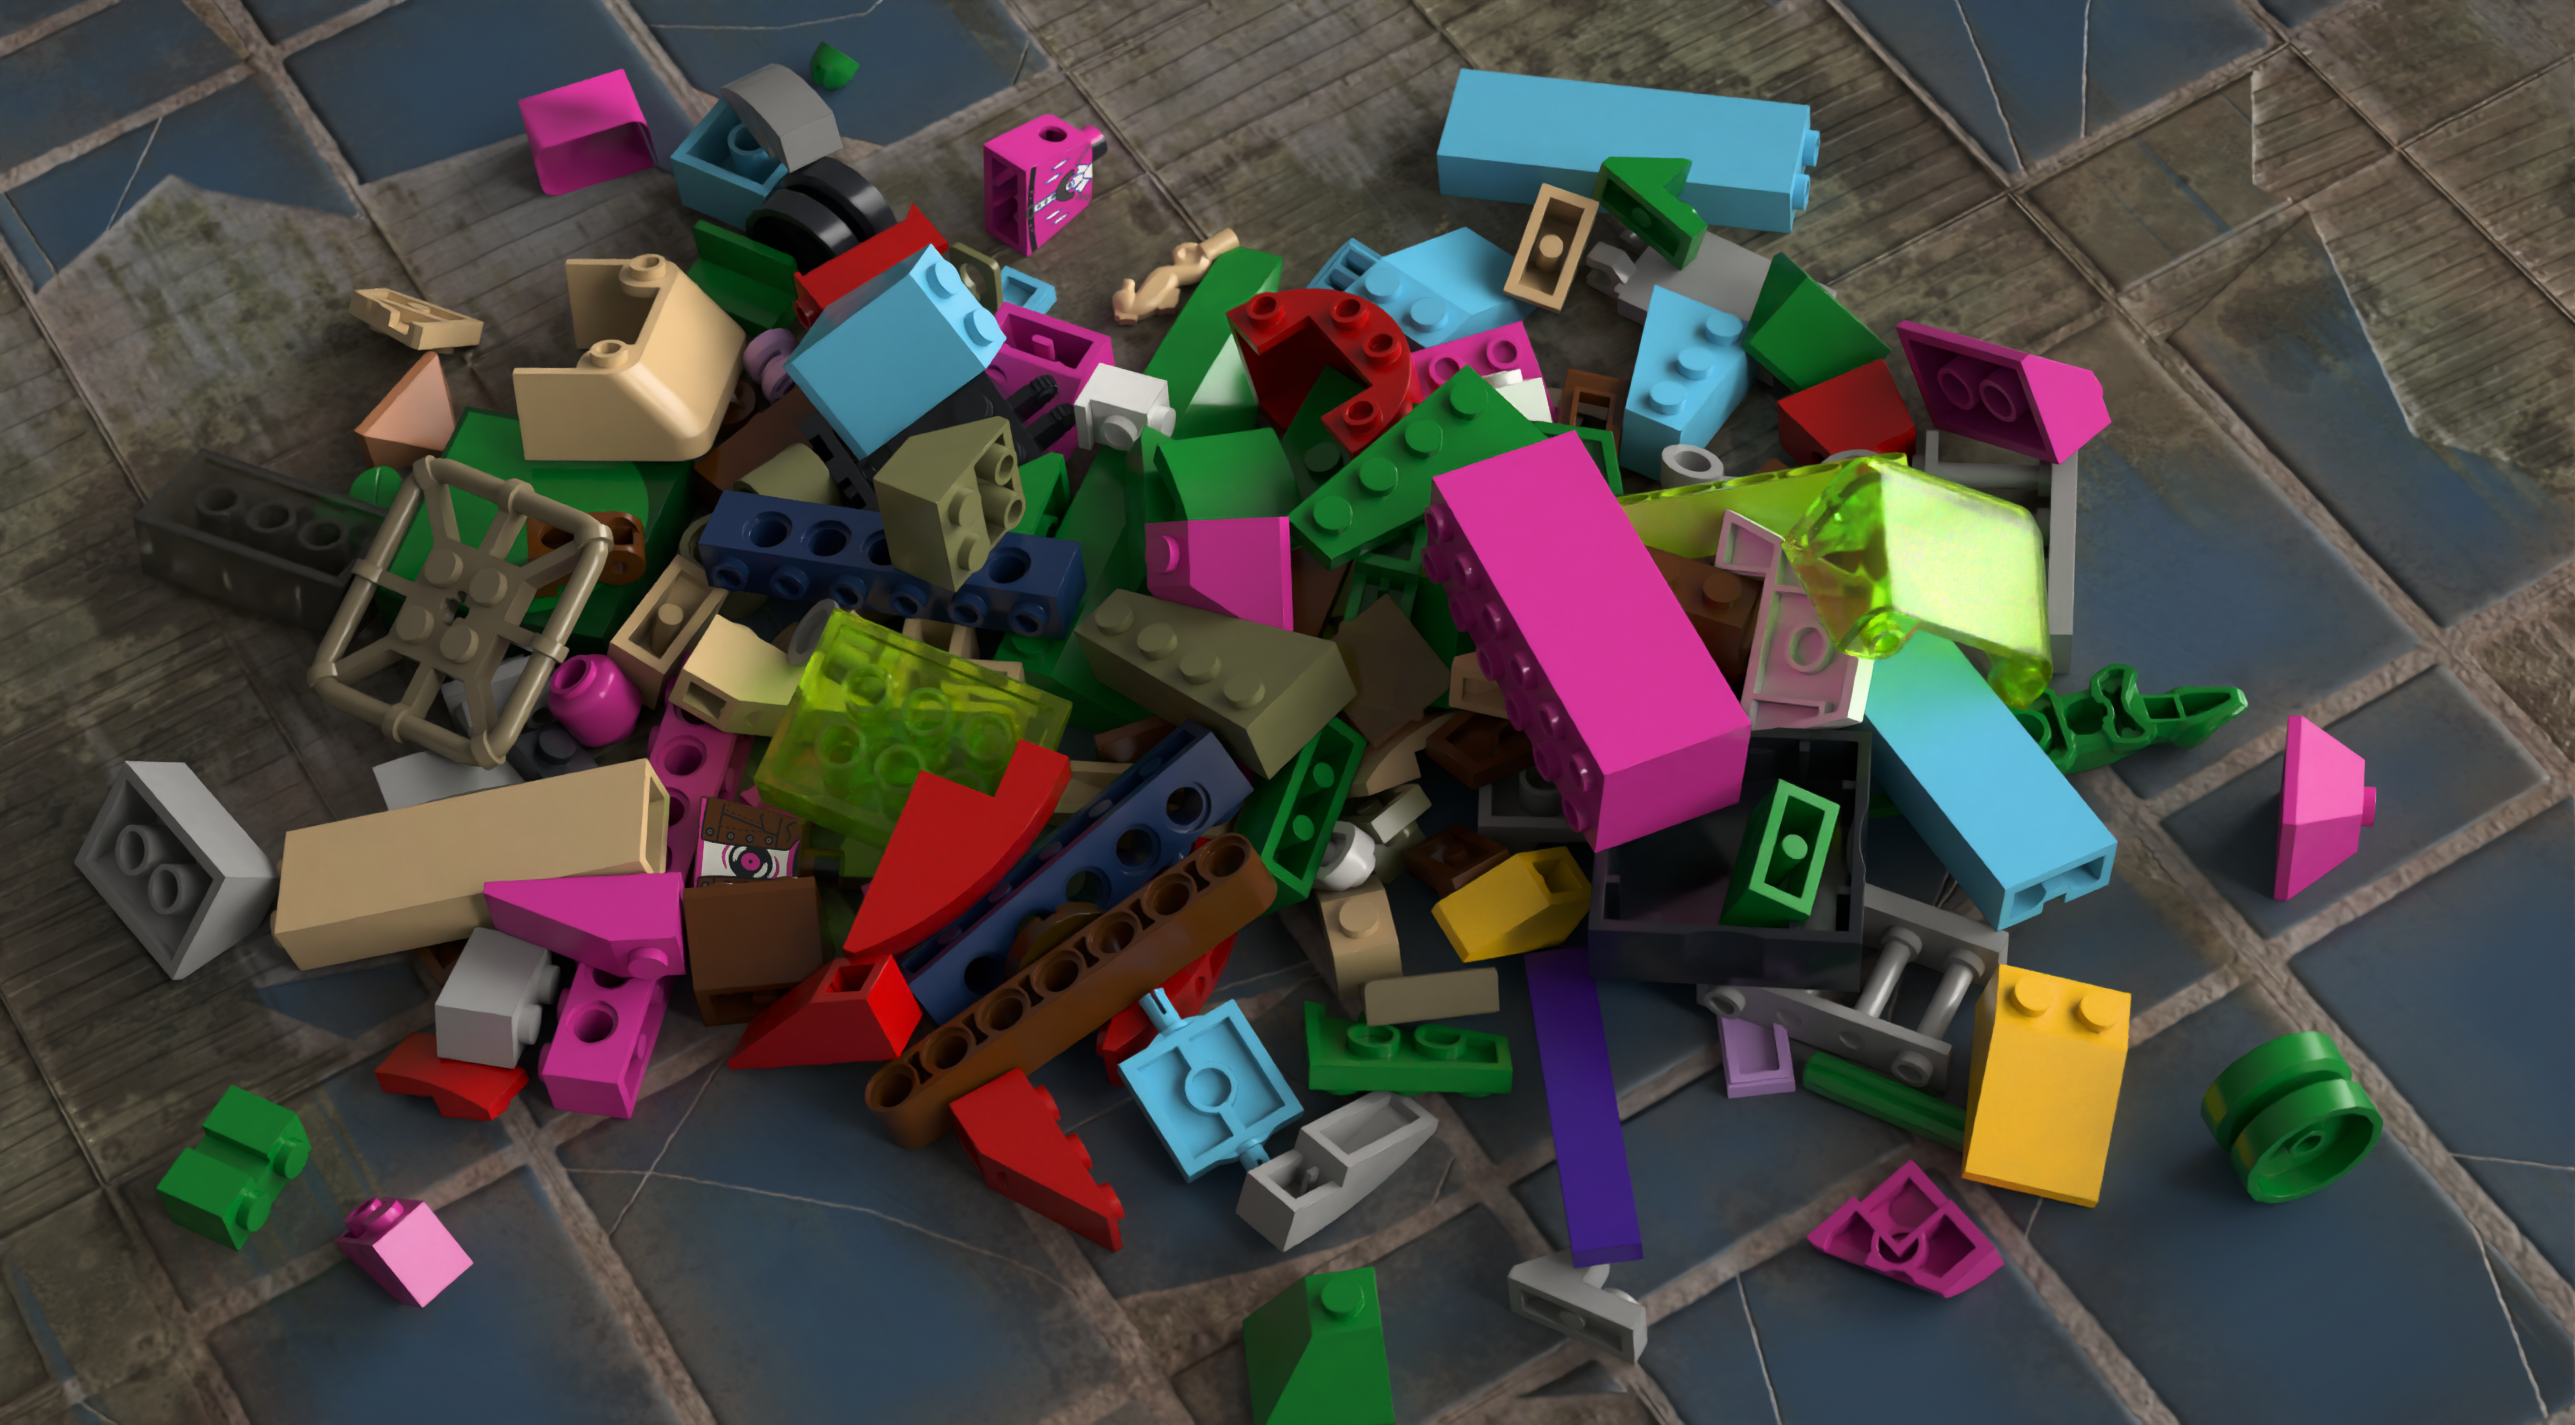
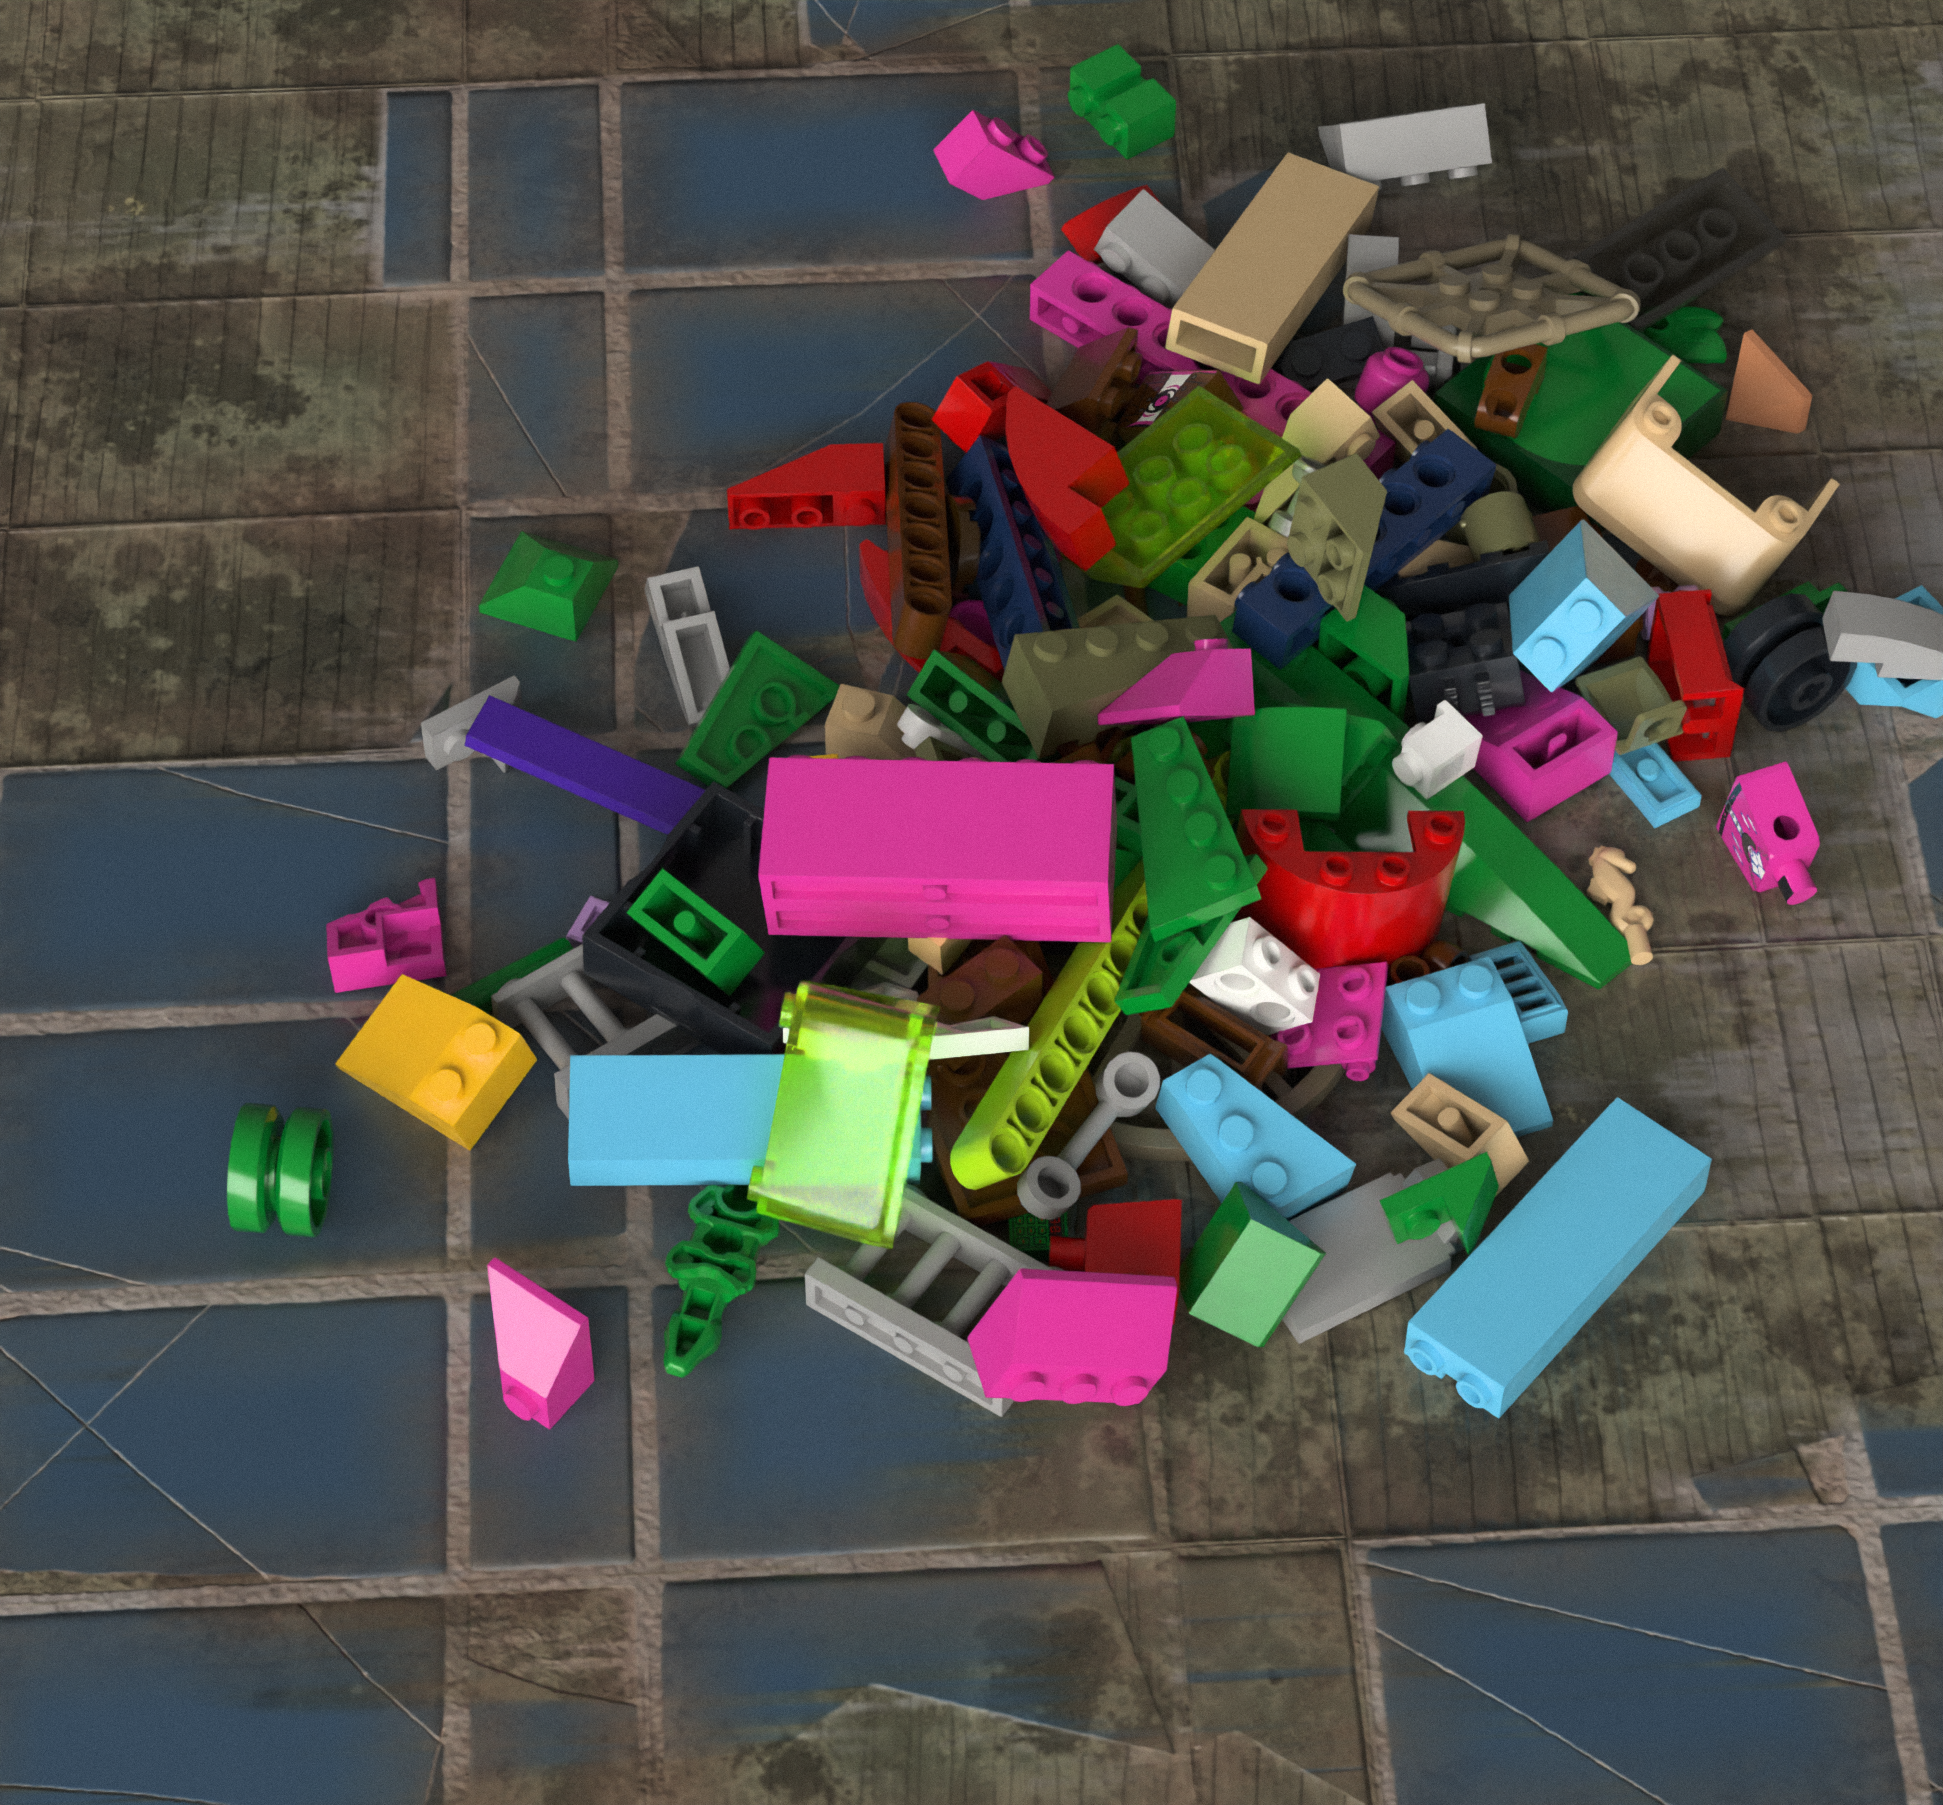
camera: 110 degrees right, 0 degrees up
(414, 320) = (1863, 409): tan wing -> none
(609, 922) = (1149, 293): dark pink slope -> none
(1208, 1088) = (799, 592): medium azure plate -> none
(1430, 996) = (797, 733): dark tan slope -> none

